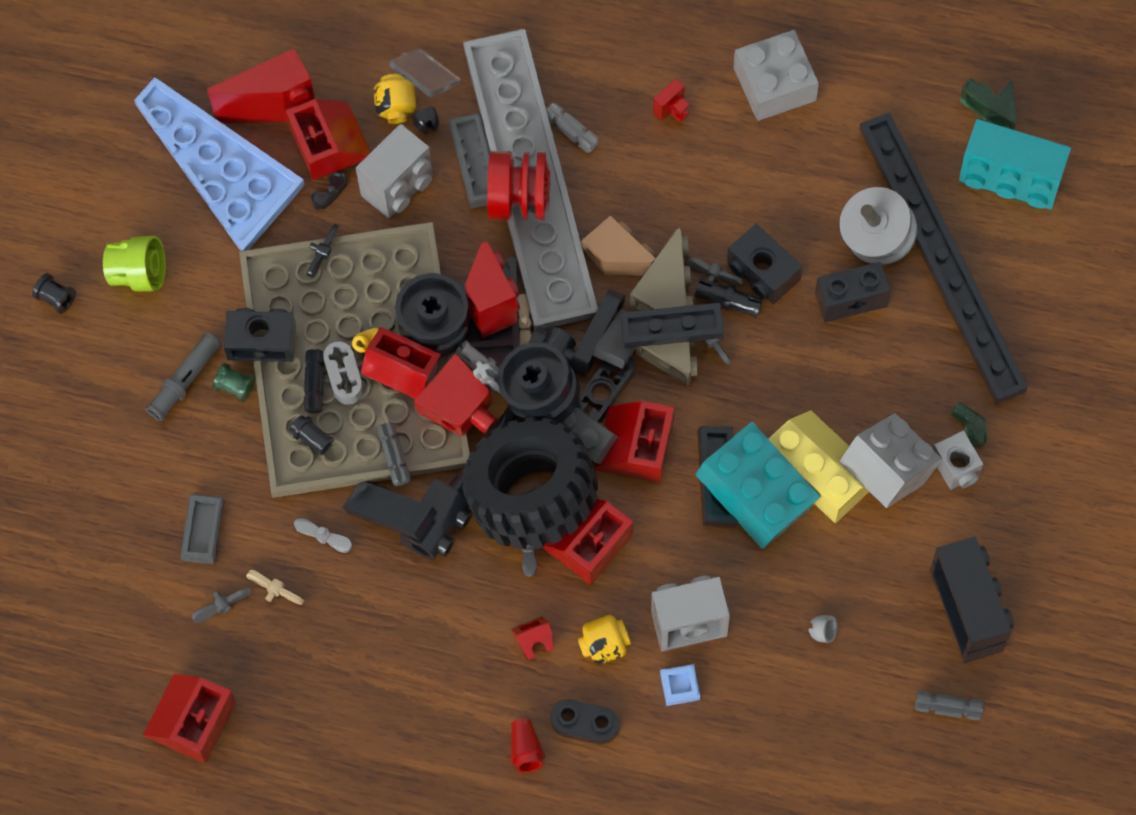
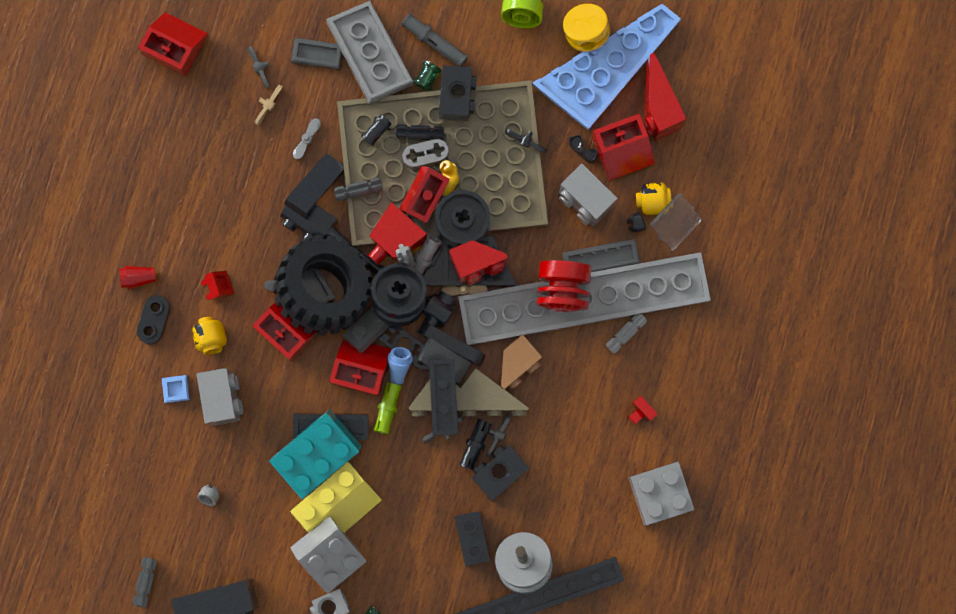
camera: 90 degrees right, 15 degrees up
(167, 186) = (586, 27): none -> yellow head
(200, 456) = (369, 52): none -> light grey tile
(626, 388) = (399, 363): none -> light blue cone
(689, 407) = (387, 408): none -> lime pin

